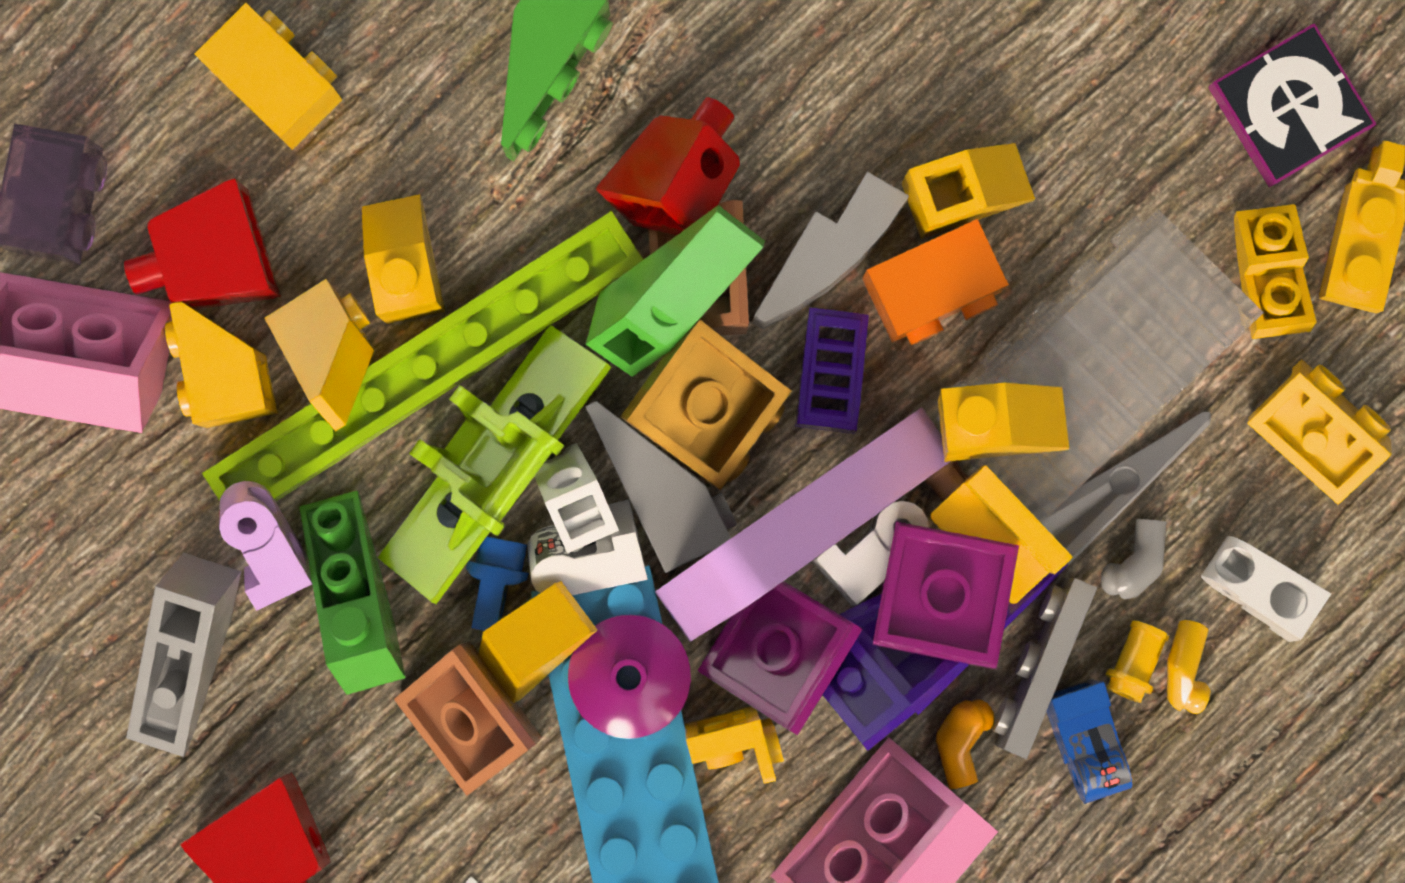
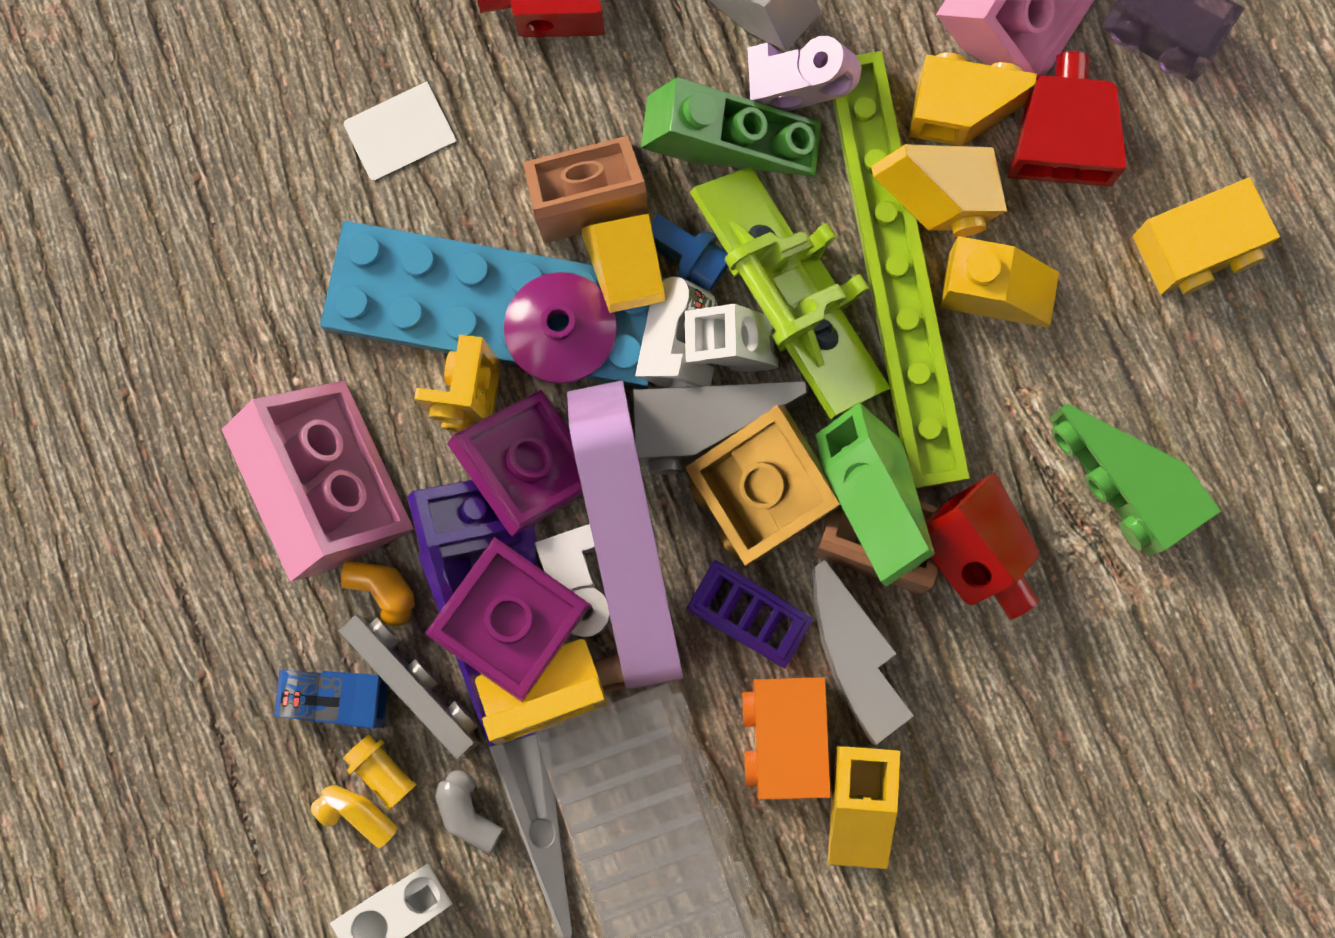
camera: 125 degrees right, 5 degrees down
(1001, 420) = (637, 734): yellow slope -> none

